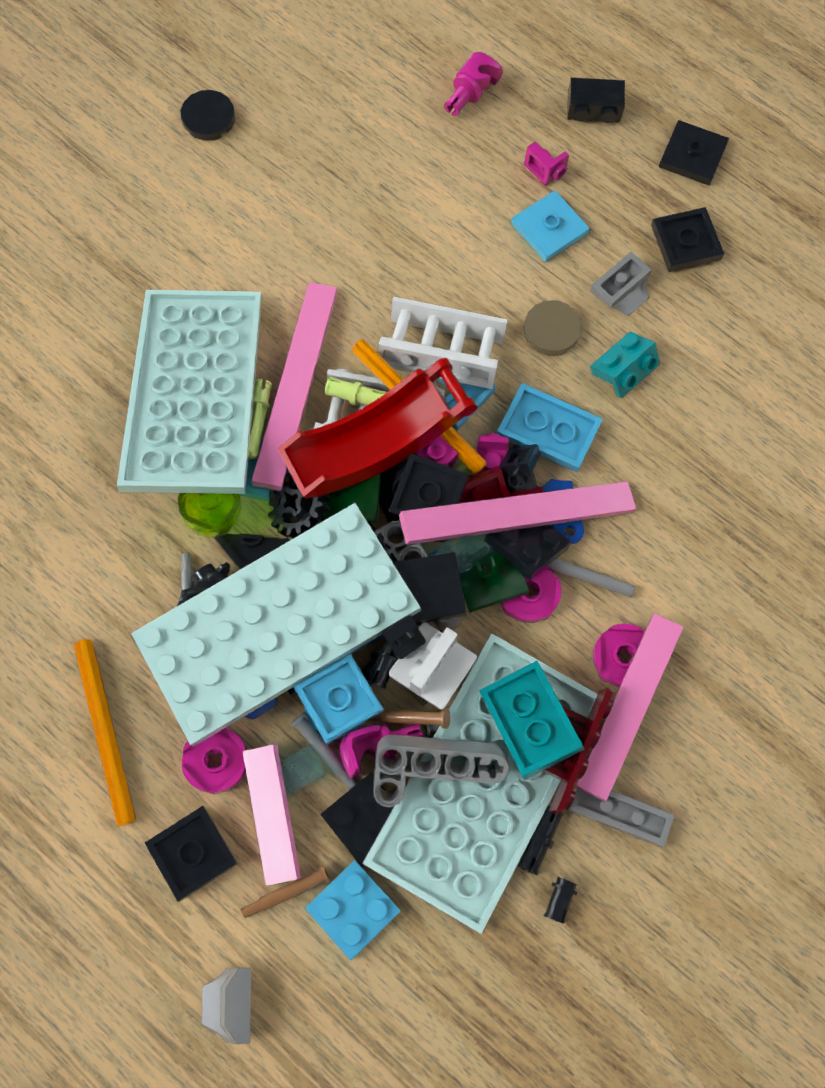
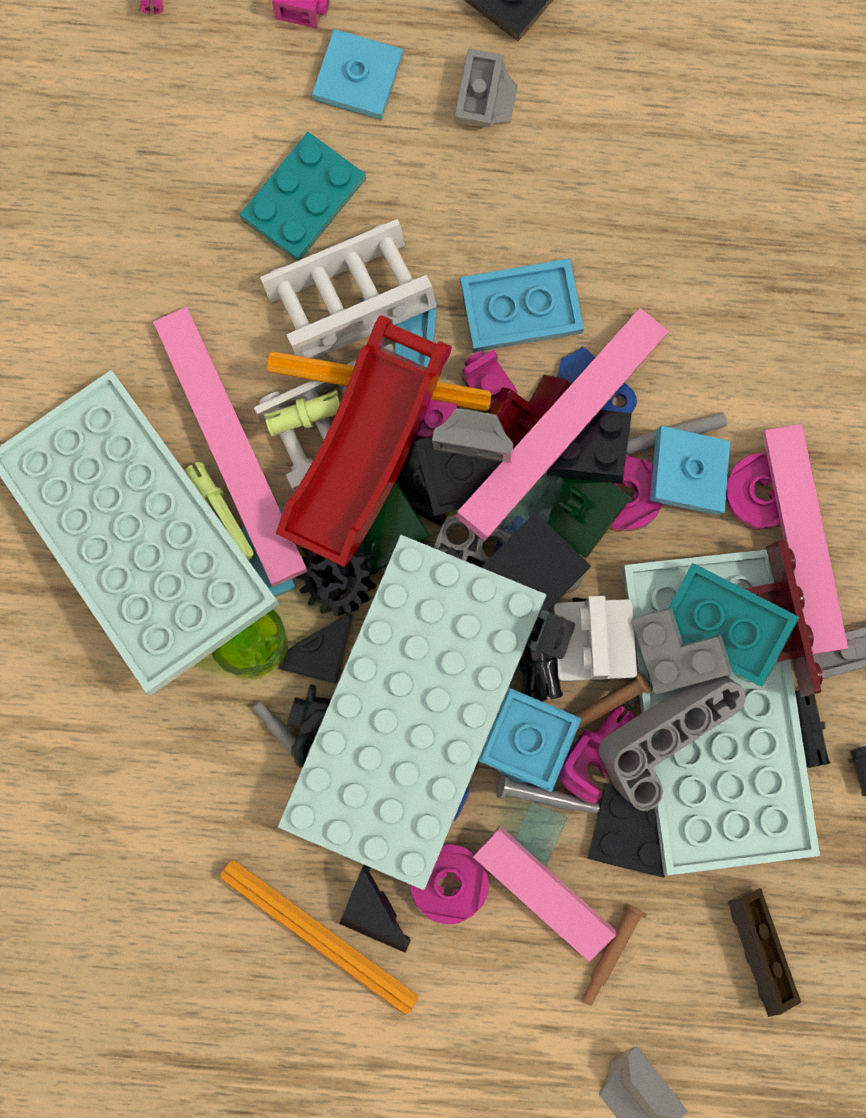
camera: 35 degrees left, 10 degrees up
(149, 740) = (373, 914): none -> black tile
(191, 853) = (497, 986): black plate -> none
(352, 910) = (685, 922): medium azure plate -> none
(391, 973) = (764, 952): none -> dark brown plate
(448, 470) = (473, 435): none -> light grey slope
(460, 273) = (303, 196): none -> teal plate
(473, 713) = (672, 662): none -> light grey plate
(519, 467) = (524, 369): black bracket -> none
(552, 327) = (444, 191): dark tan tile -> none
(583, 606) = (690, 470): none -> medium azure plate
(627, 363) = (548, 177): teal bracket -> none

